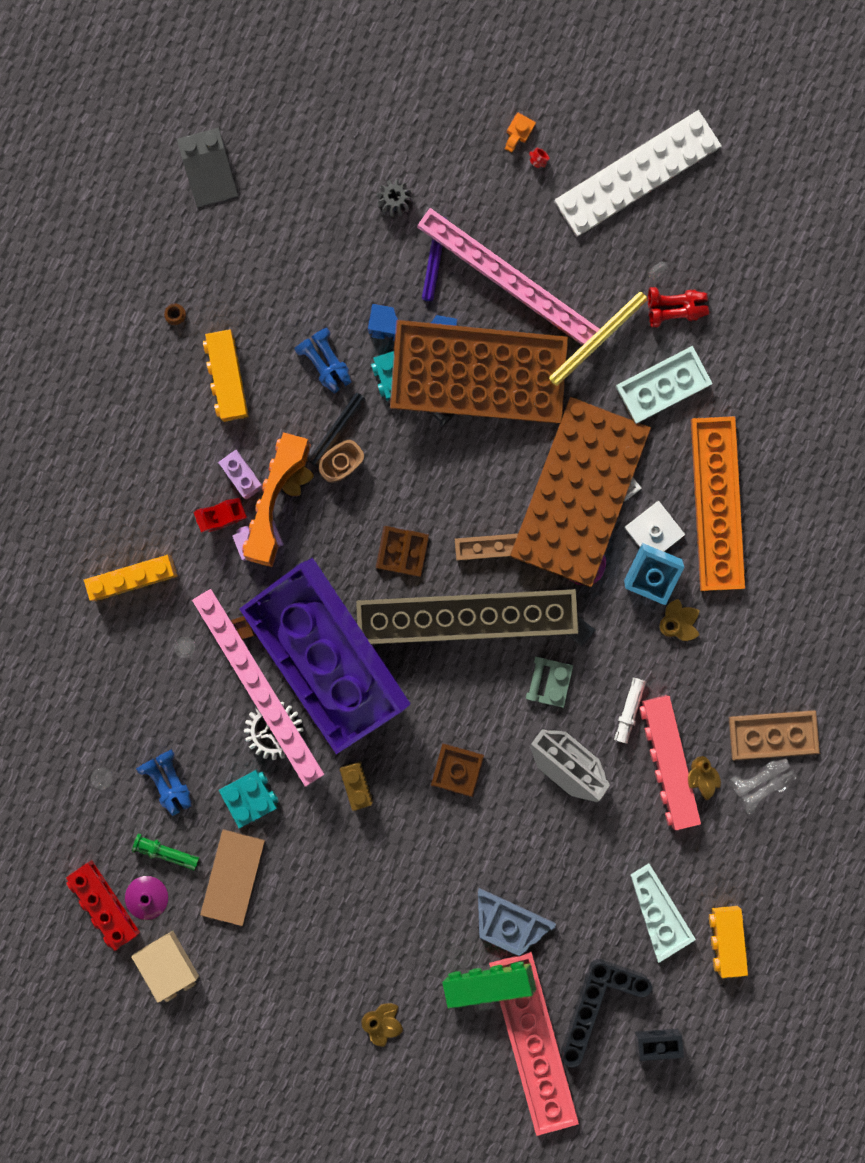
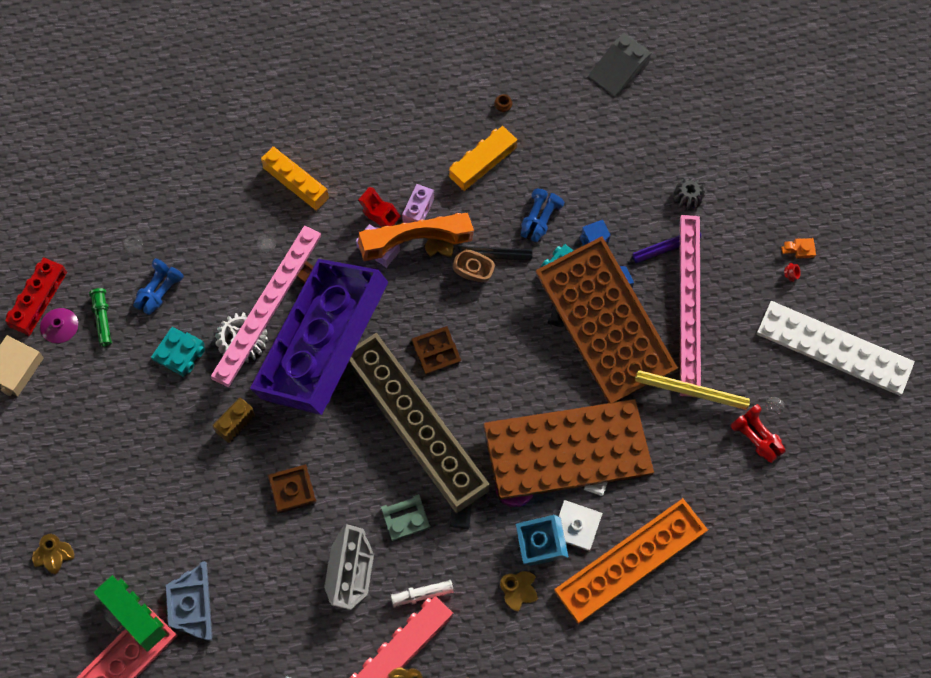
camera: 60 degrees right, 20 degrees down
(232, 877) = (109, 375): medium nougat tile -> none
(484, 547) = (477, 403): medium nougat plate -> none
(663, 385) = (693, 462): light aqua plate -> none

